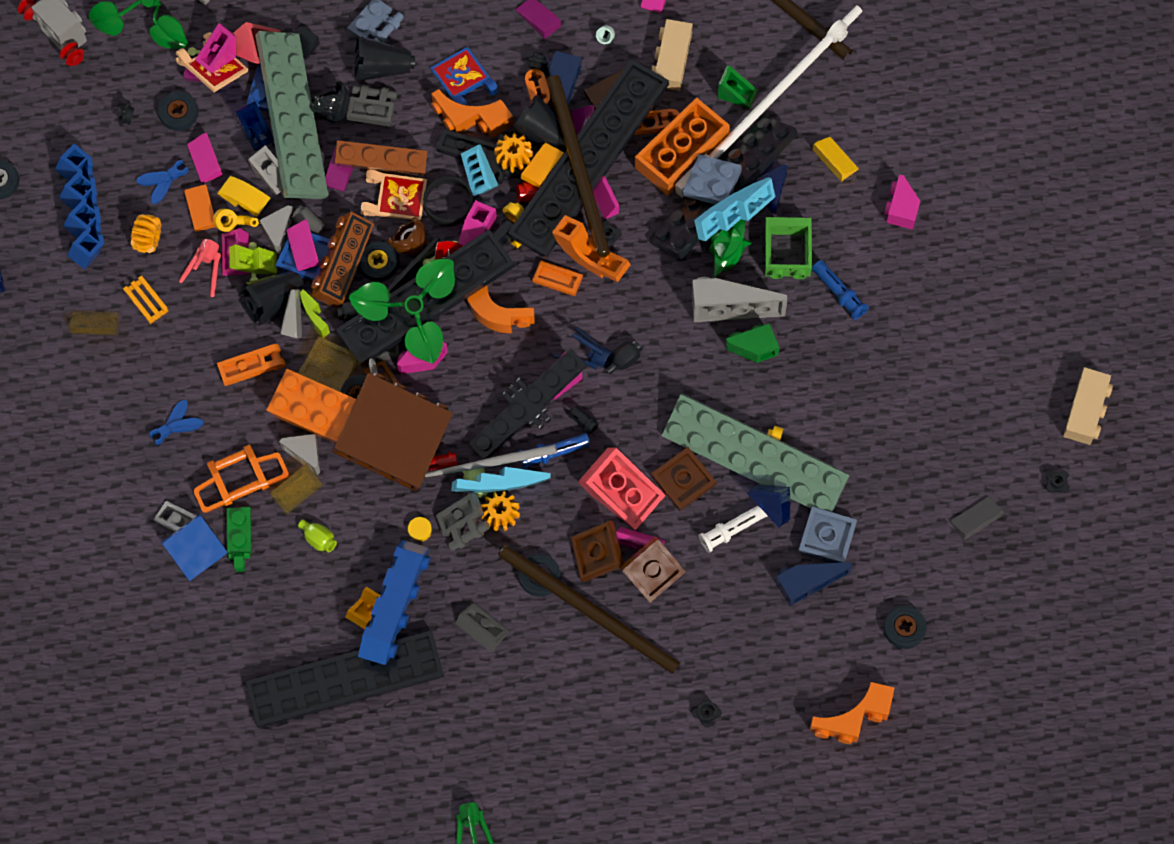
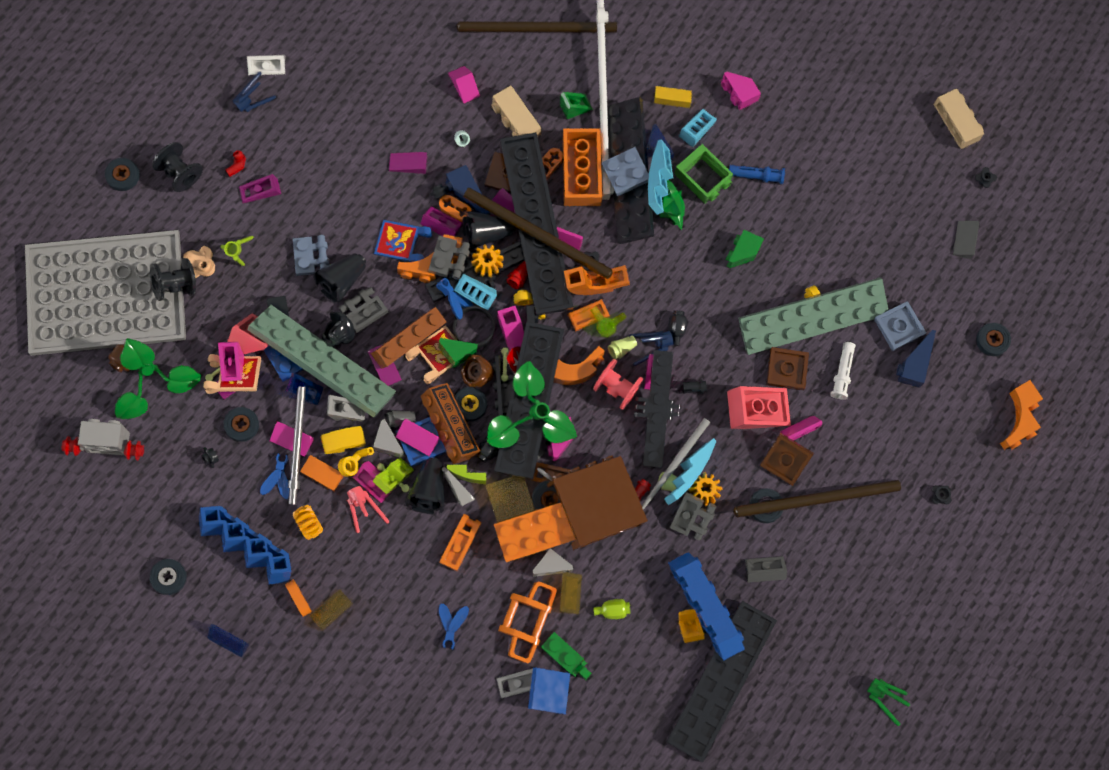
camera: 55 degrees left, 5 degrees up
(78, 288) = (298, 597): none -> orange beam
(135, 285) = (351, 564): light orange tile -> none
(168, 195) = (293, 483): none -> flat silver bar
(411, 206) = (456, 351): none -> green slope
(419, 529) = (668, 545): yellow tile -> none
(454, 161) = (455, 299): none -> blue piece
(479, 116) = (443, 256): none -> dark grey plate
(513, 90) = (440, 222): none -> magenta slope
(513, 342) = (615, 387): none -> coral hose
(541, 165) = (512, 253): light orange tile -> none
(556, 329) = (621, 347): none -> yellowish green cone
(561, 299) = (607, 326): none -> clear neon green piece
(580, 441) = (700, 414): blue pin -> none
(652, 569) = (830, 439): reddish brown plate -> none
(727, 300) = (705, 237): light grey slope -> none
(773, 501) = (851, 334): clear blue slope -> none
(819, 211) = (690, 135): none -> medium azure slope

